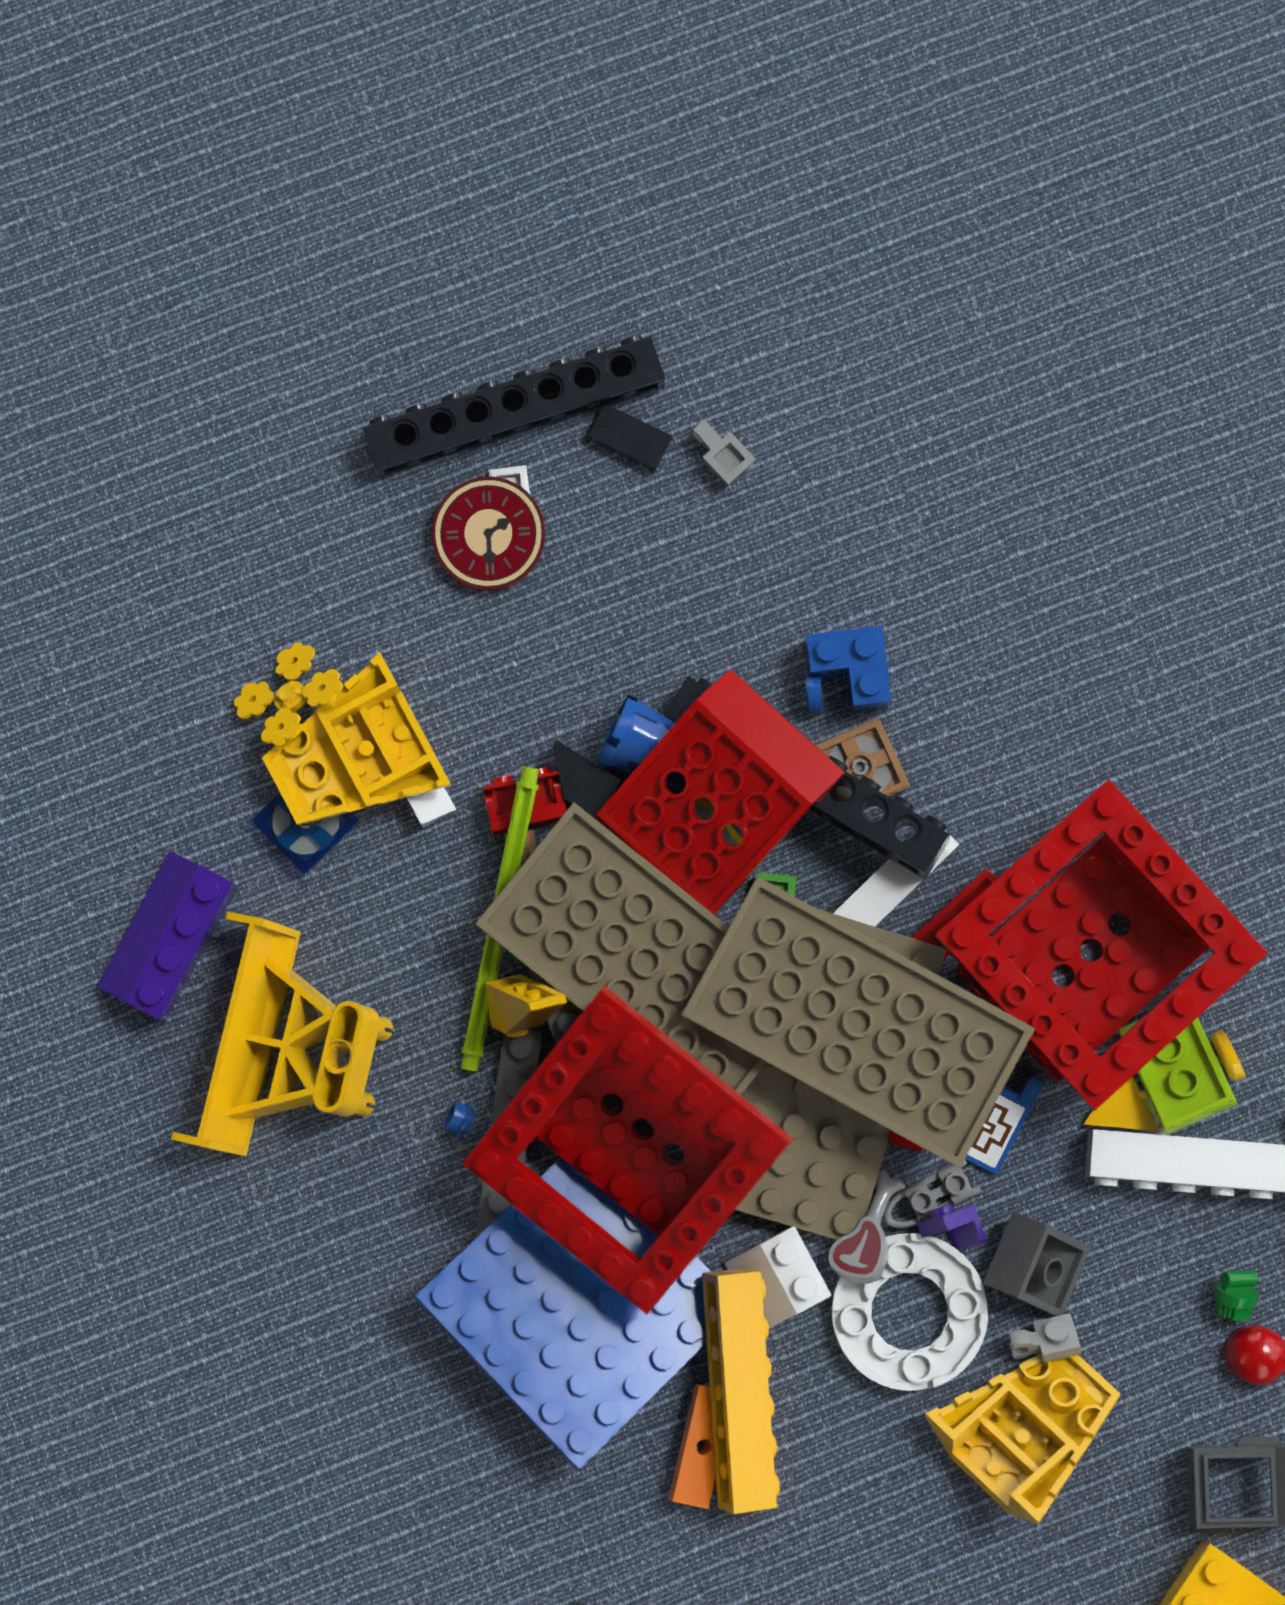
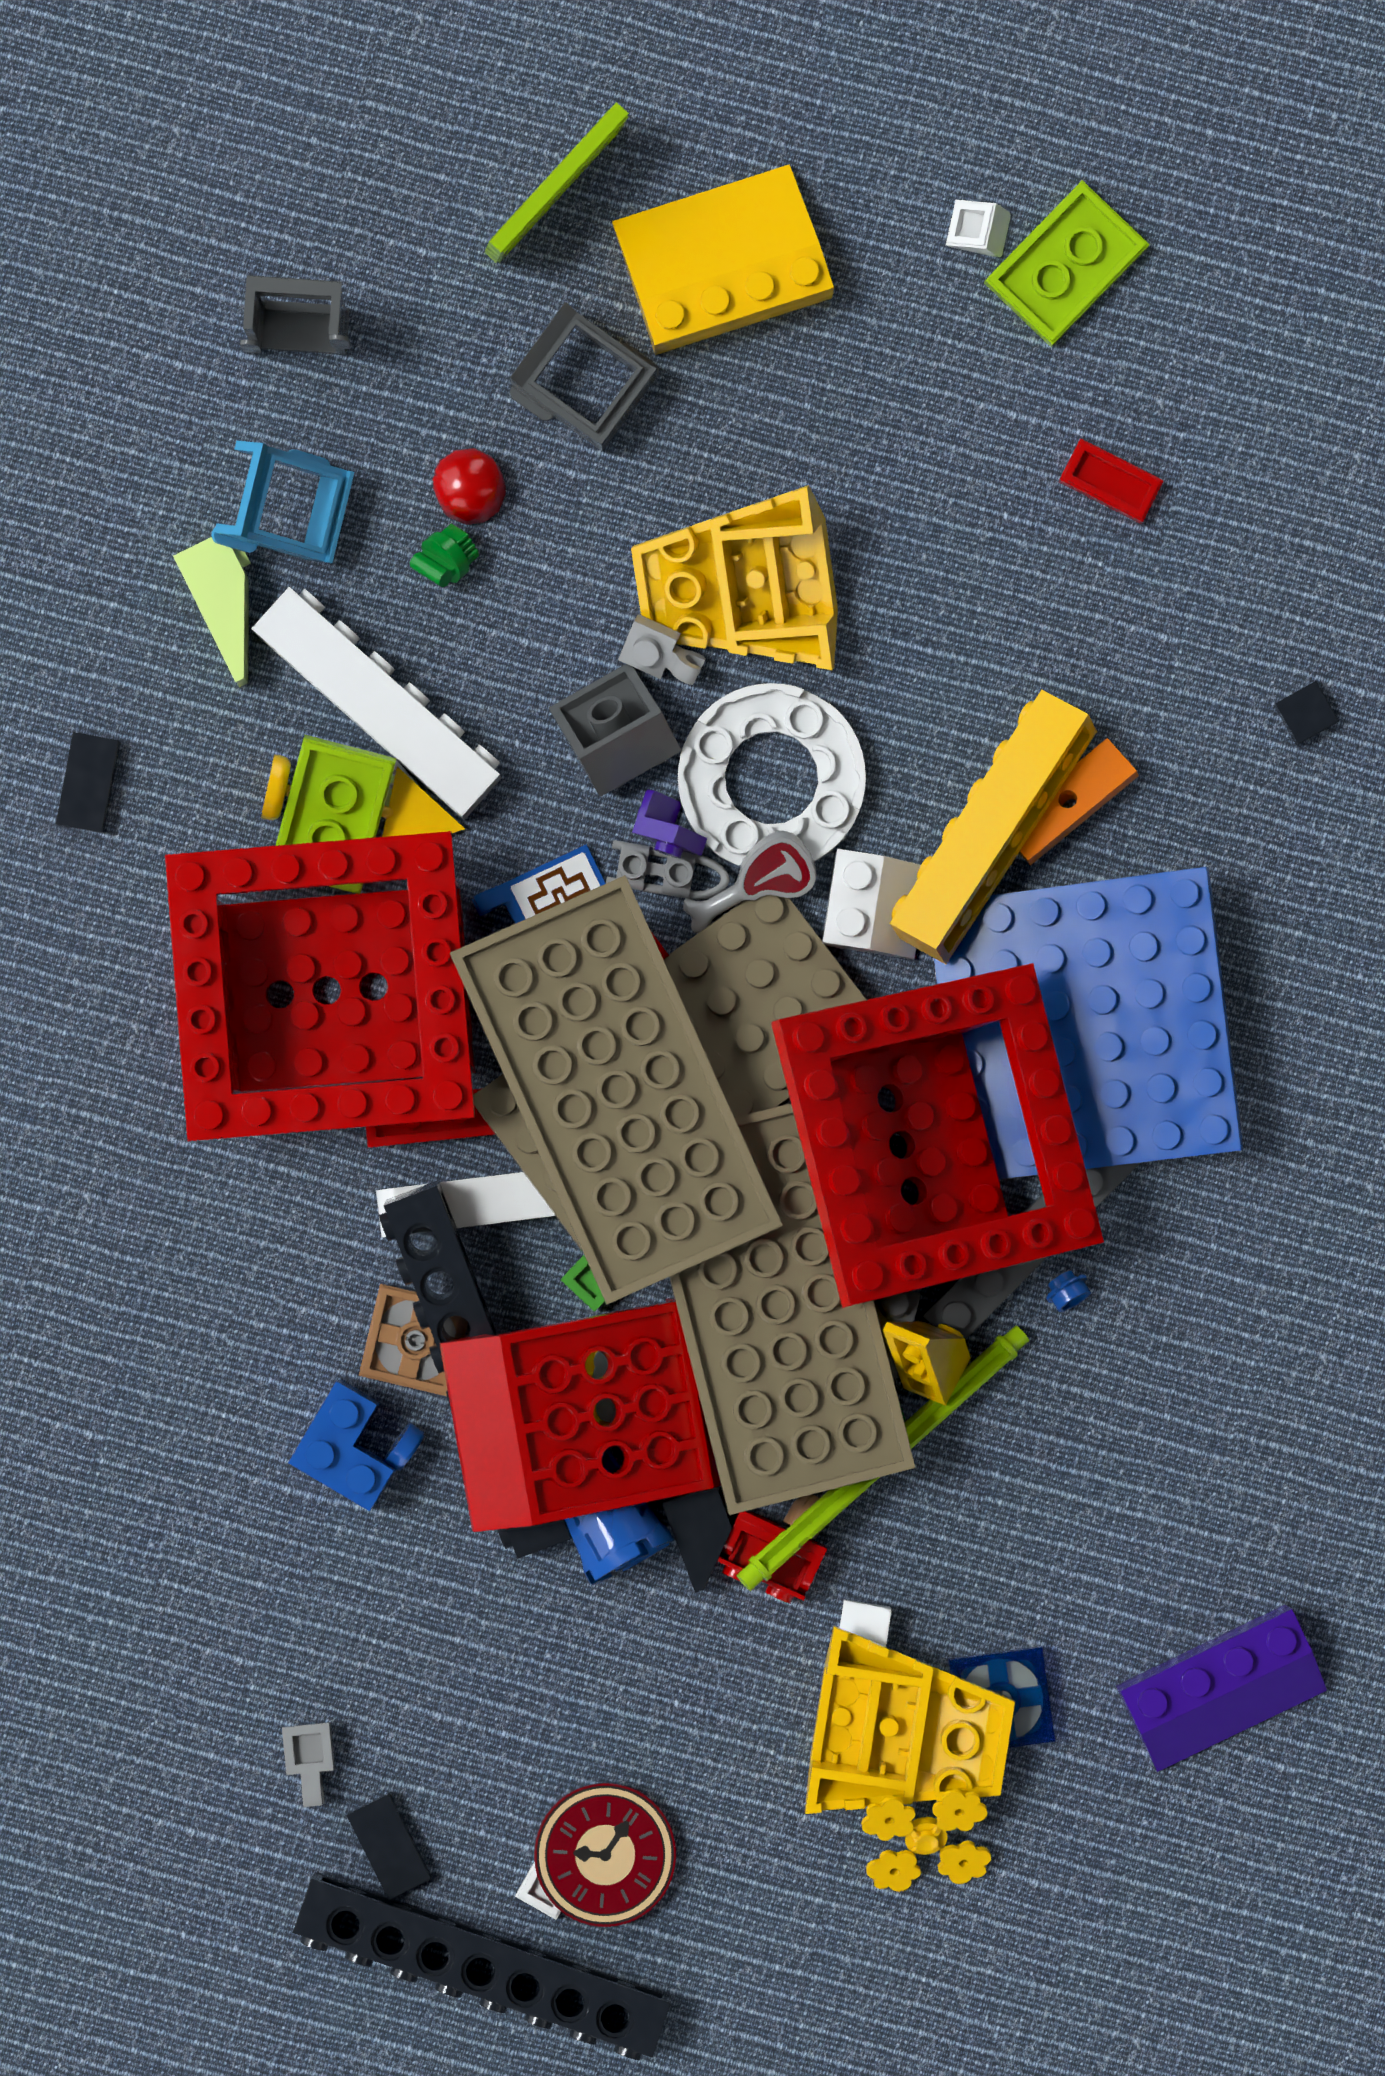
camera: 140 degrees left, 5 degrees up
(250, 1037) = (1213, 1525): yellow piece -> none

